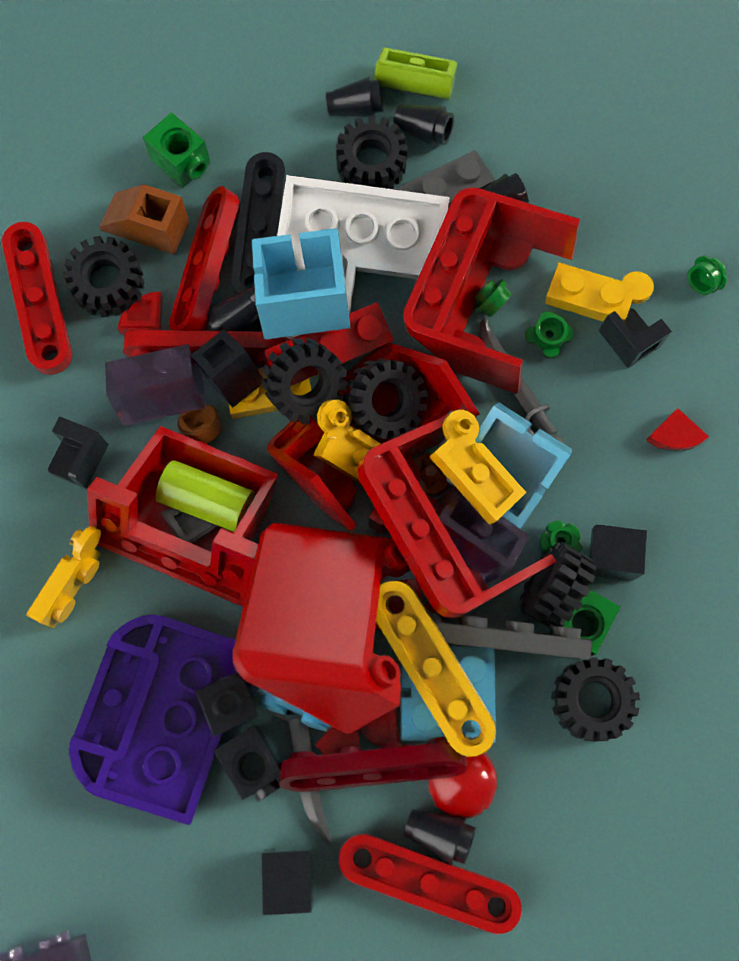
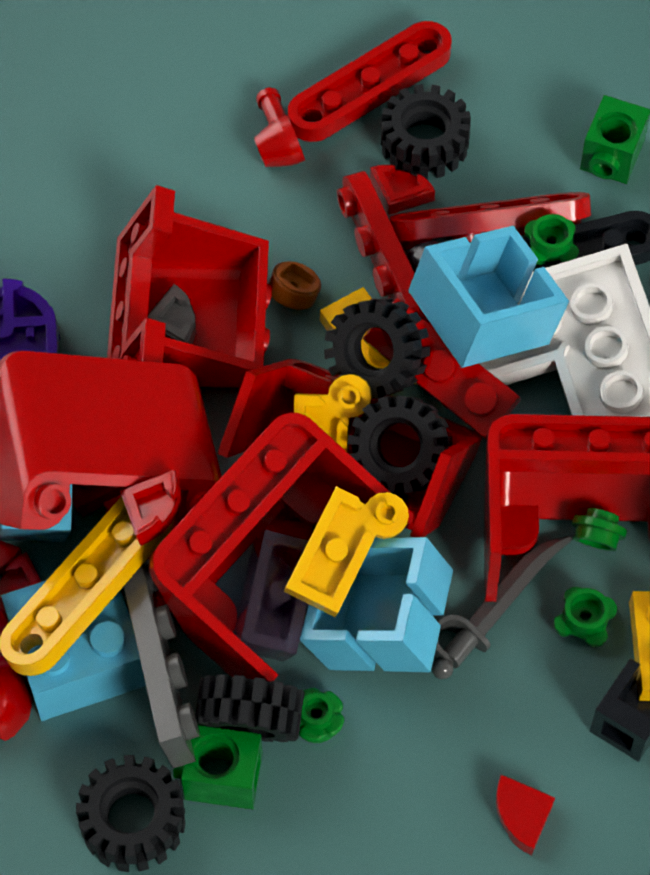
camera: 70 degrees right, 15 degrees down
(56, 597) = (65, 226): yellow hinge -> none
(62, 385) = (278, 140): none -> red bar
(77, 453) = (210, 190): black panel -> none
(147, 217) = (512, 145): dark orange slope -> none
(154, 385) = (315, 220): clear purple brick -> none
(203, 495) = (209, 305): lime brick -> none
(228, 368) = (360, 270): black panel -> none
(249, 216) = (556, 229): none -> green plate
(399, 595) = (152, 505): none -> red tile
(618, 552) = (324, 775): black panel -> none

